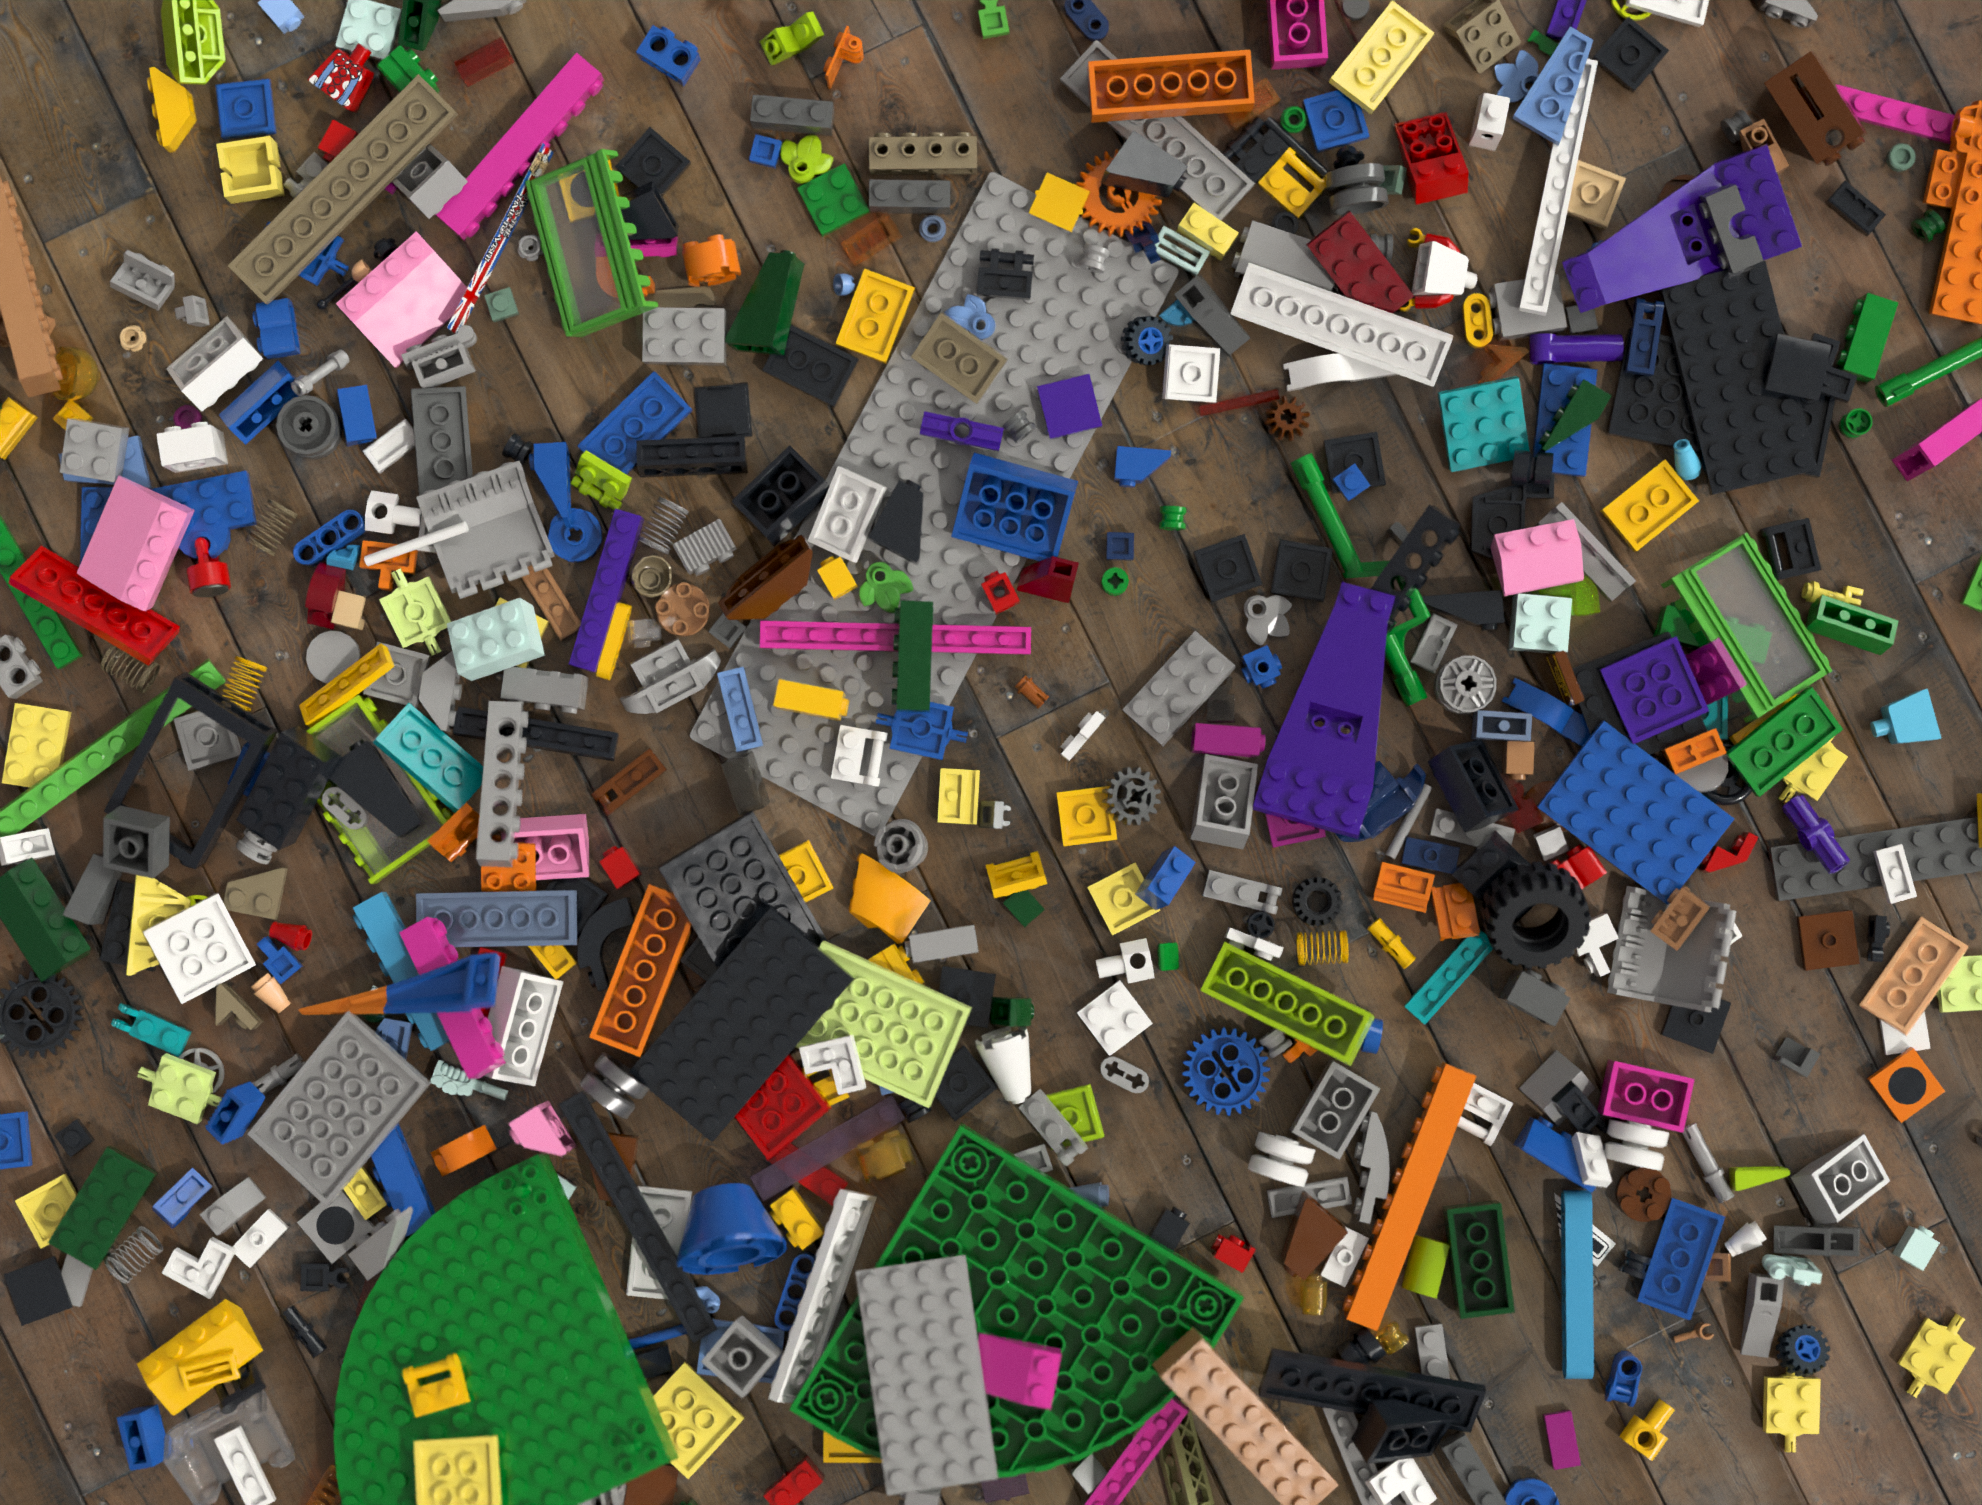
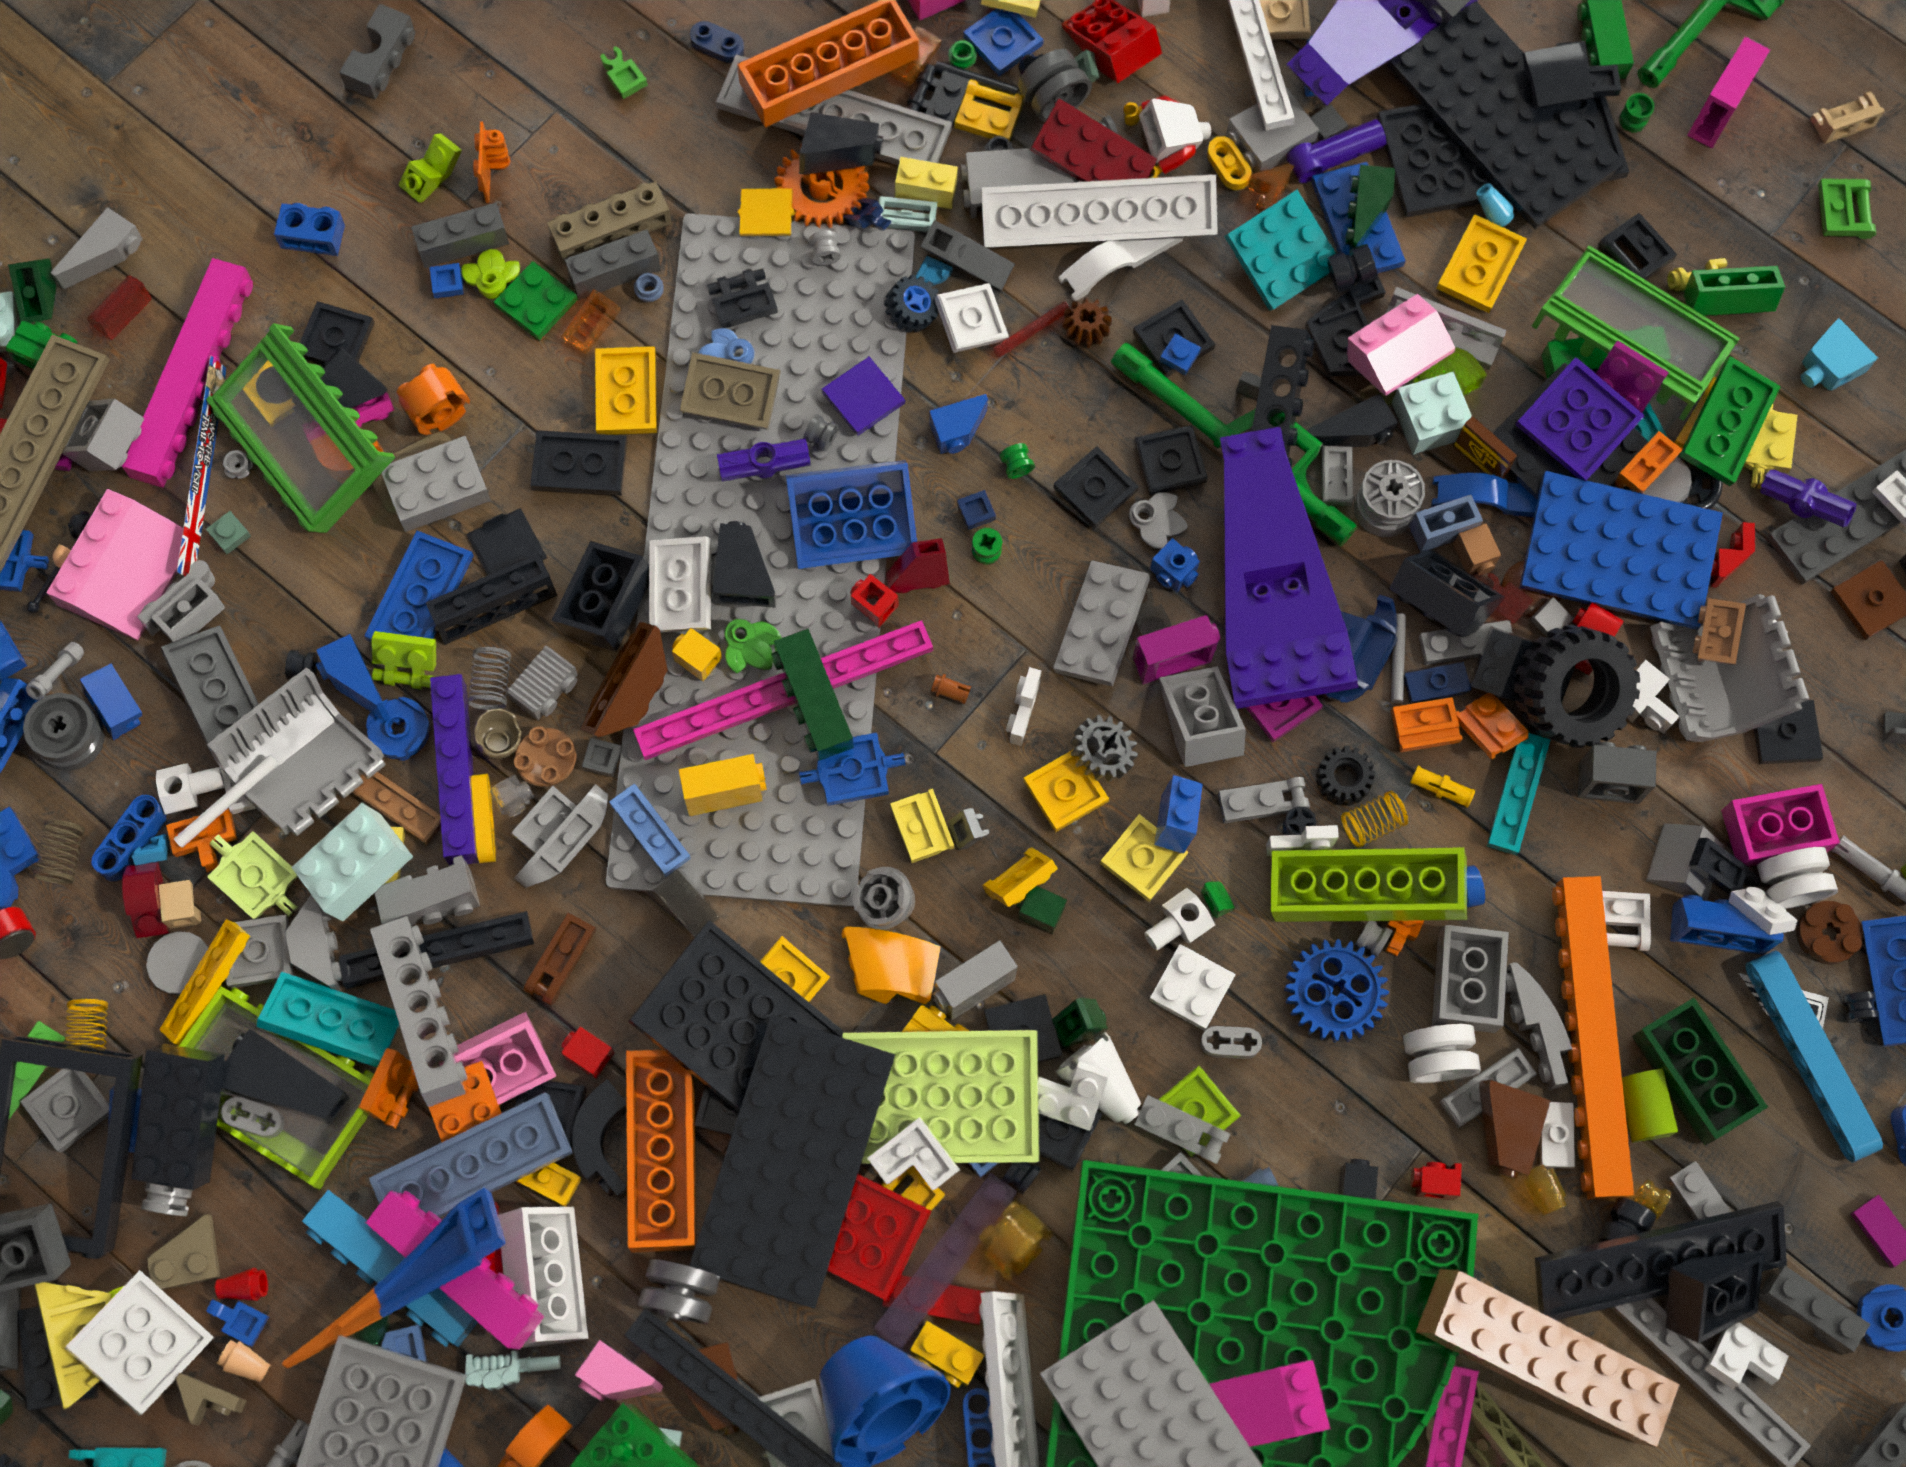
camera: 25 degrees left, 15 degrees down
(391, 446) = (162, 719): white tile -> none
(769, 307) = (511, 423): dark green slope -> none
(843, 284) = (580, 373): medium blue hinge -> none
(850, 754) = (788, 830): white plate -> none
(978, 1074) = (1077, 1103): none -> white plate
(1644, 338) = (1398, 111): dark blue plate -> none

